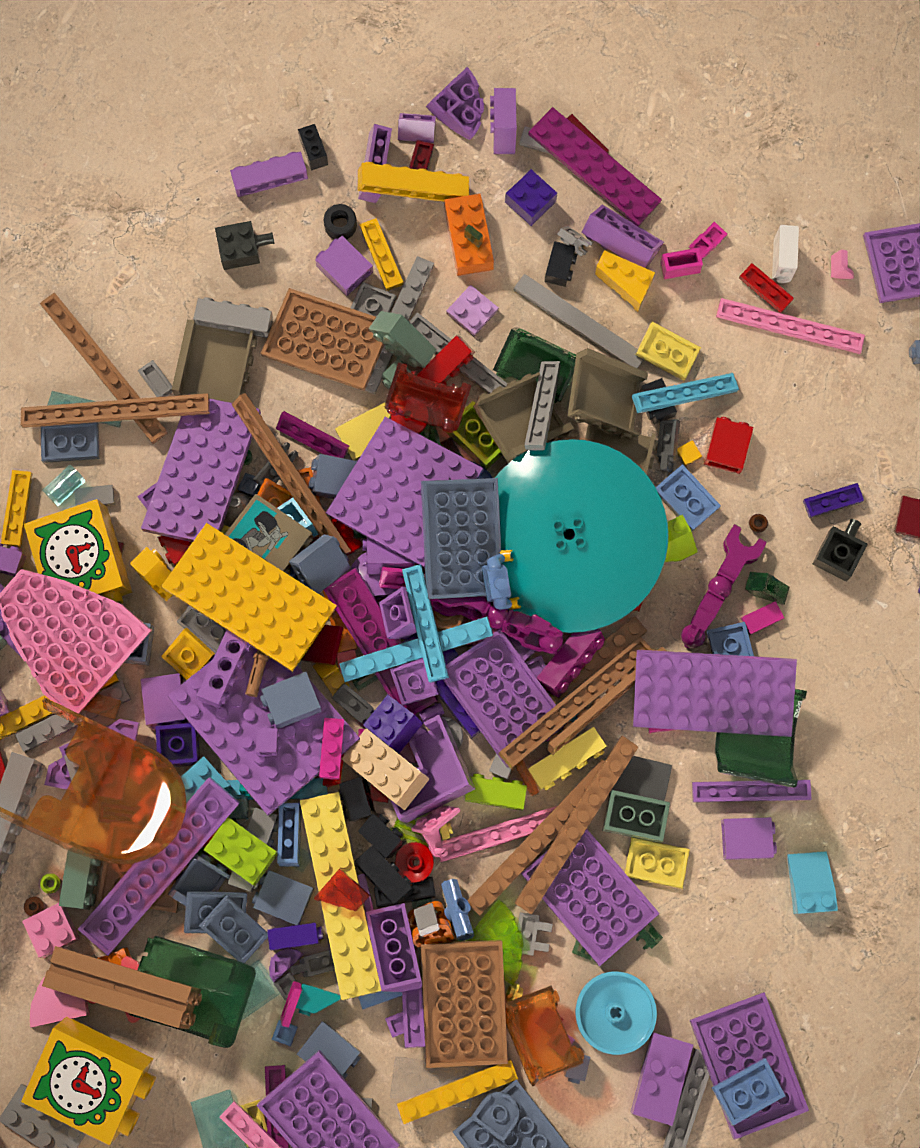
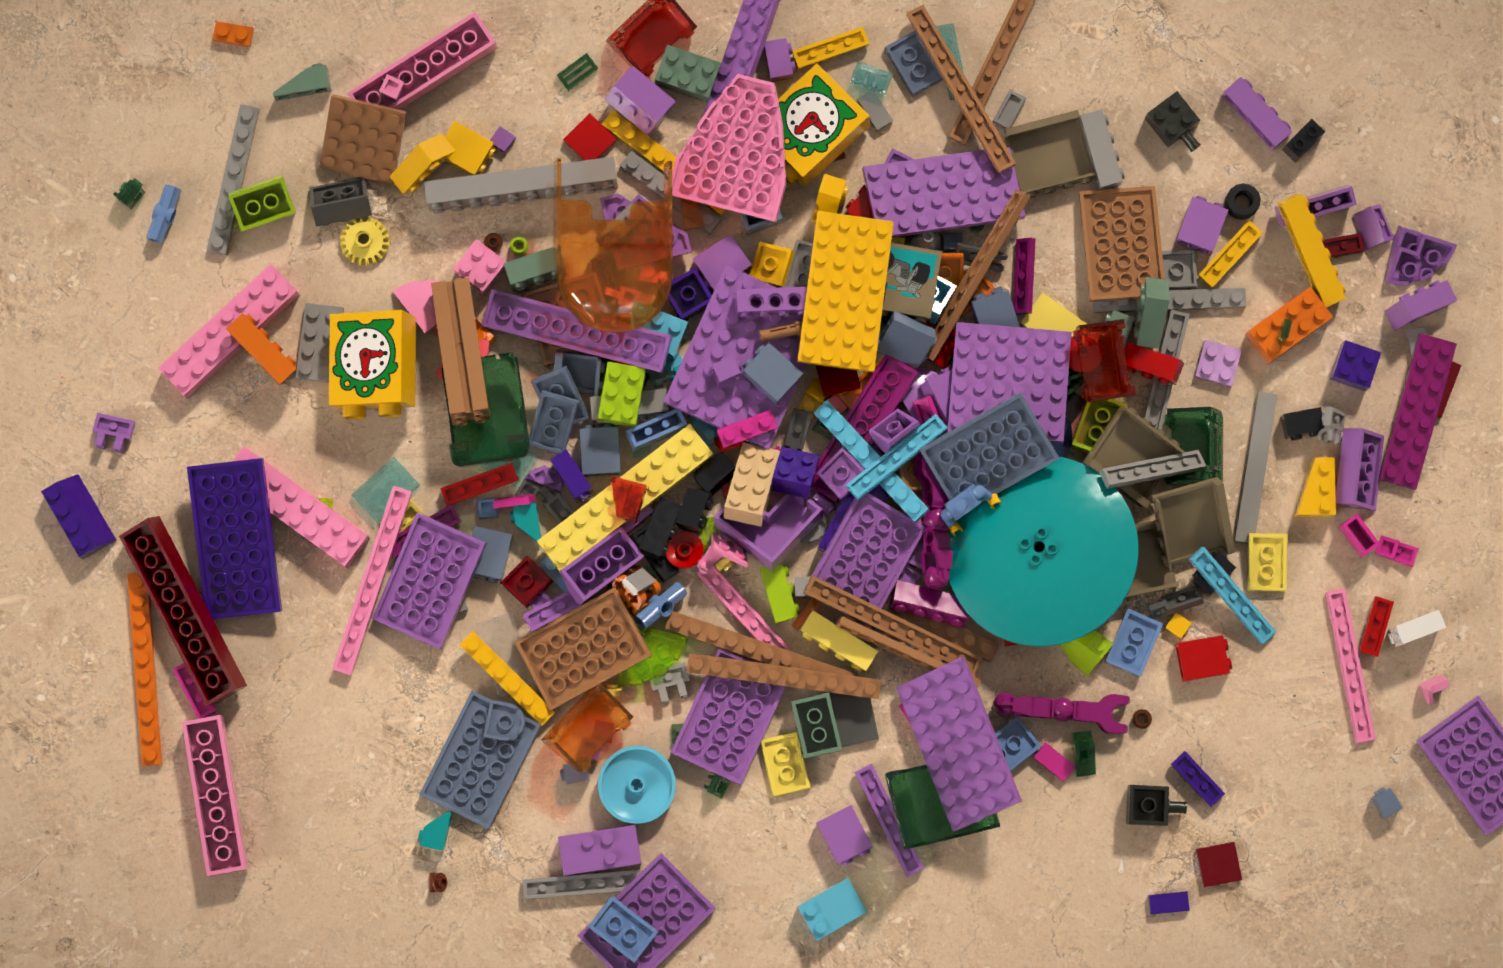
camera: 65 degrees right, 5 degrees up
(258, 1030) = (479, 484): none -> red plate
(373, 1028) = (526, 582): none -> dark red tile

